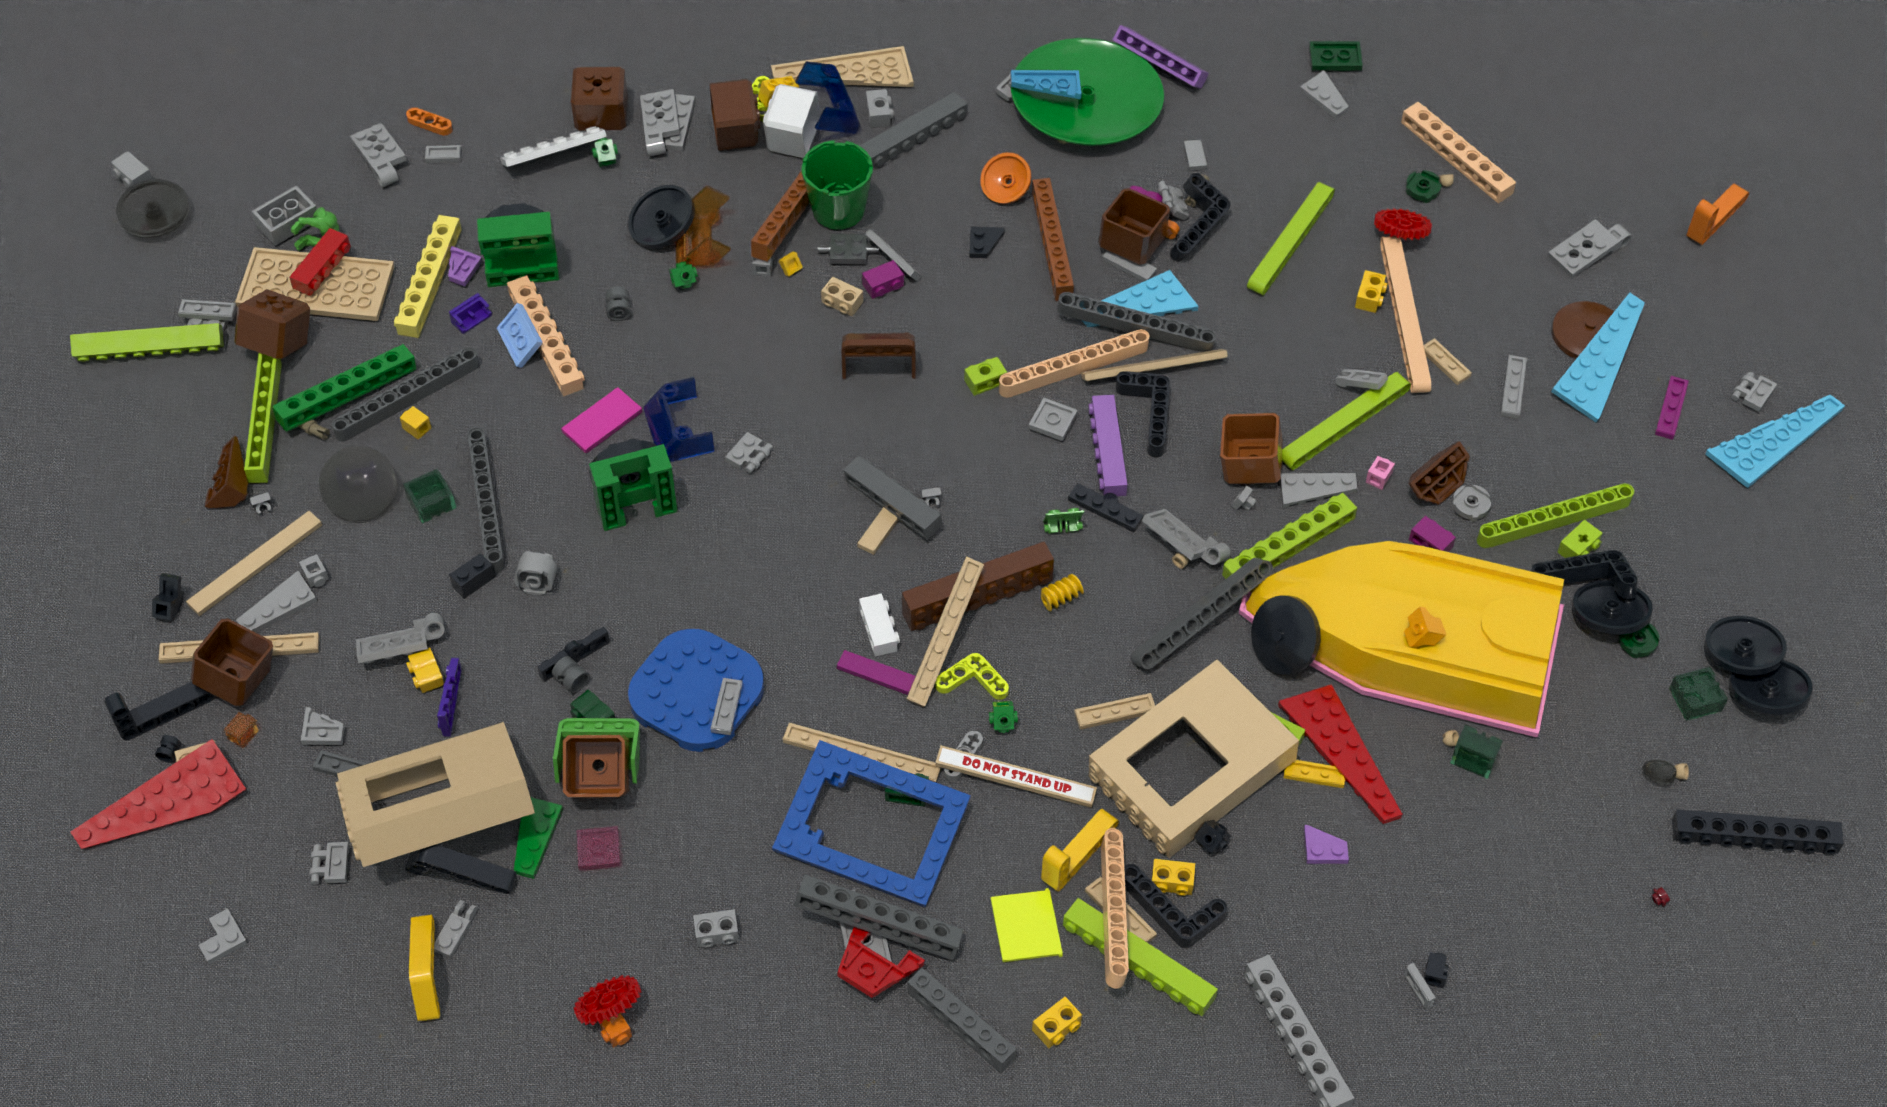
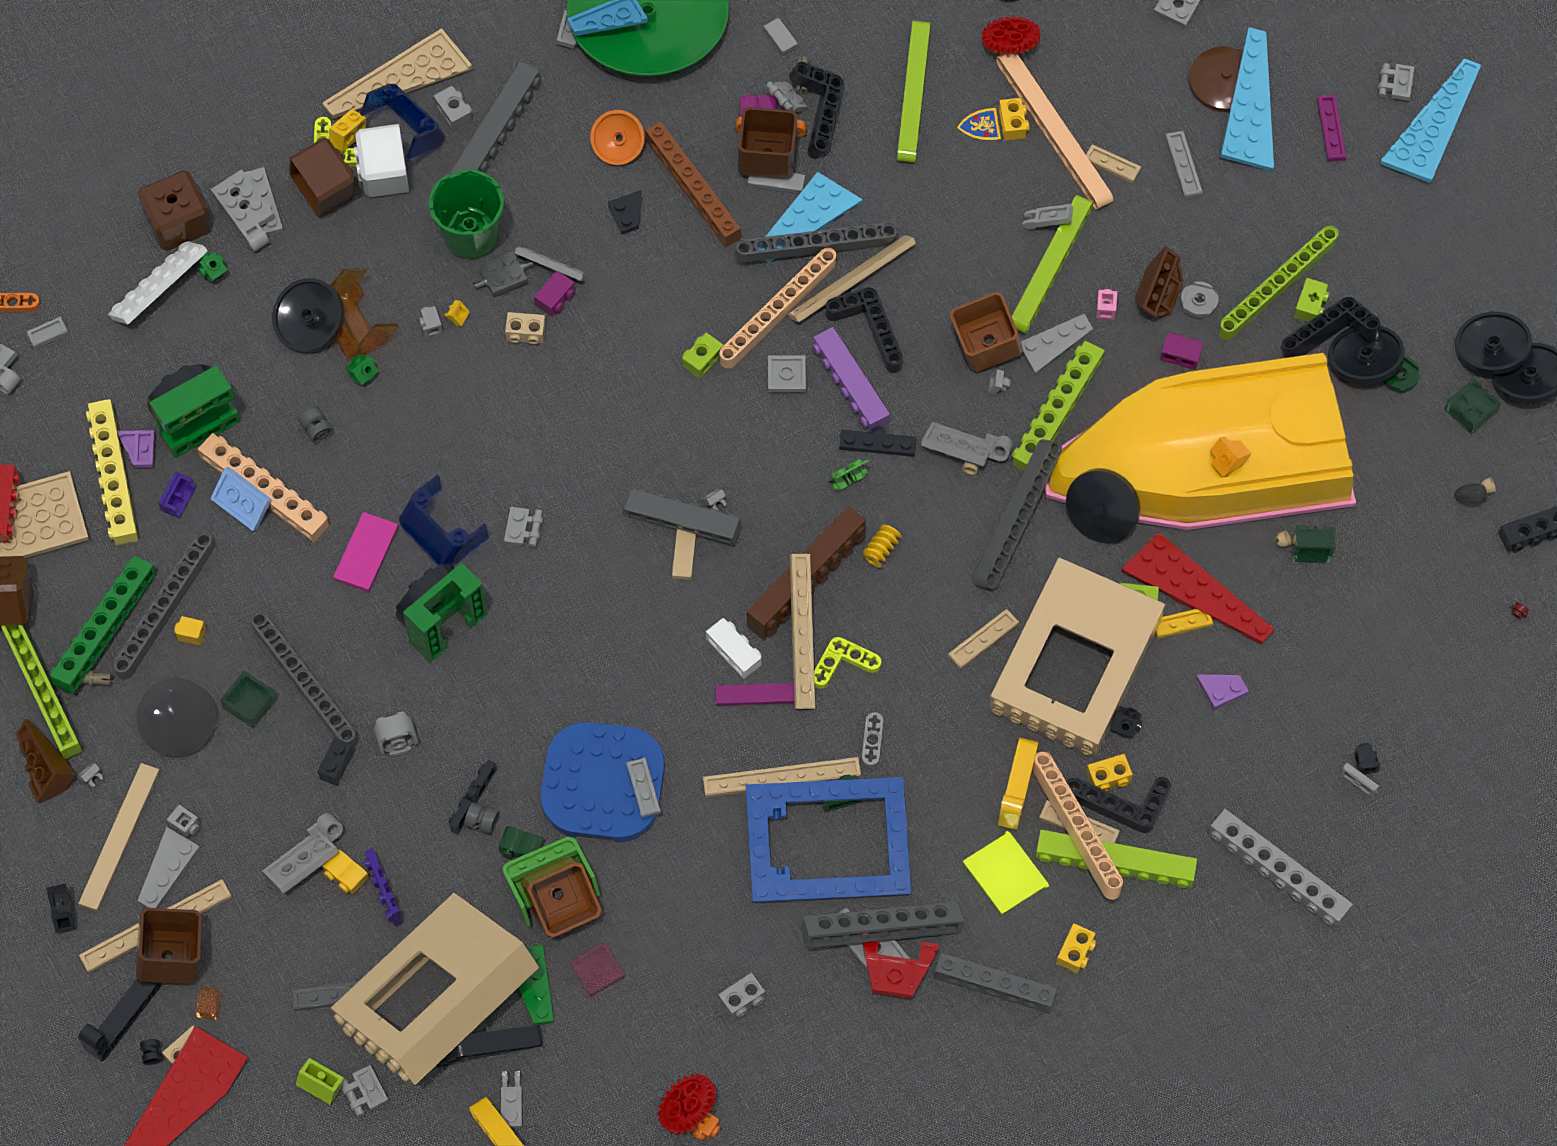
camera: 25 degrees left, 10 degrees up
(294, 835) = (319, 1081): none -> lime brick
(321, 729) = (281, 970): light grey wing -> none
(780, 220) = (428, 263): dark orange brick -> none
(878, 346) = (593, 371): reddish brown windscreen -> none
(1006, 710) = (890, 688): green brick -> none
(1016, 776) = (929, 740): tile -> none
(1340, 288) = (981, 125): none -> sticker

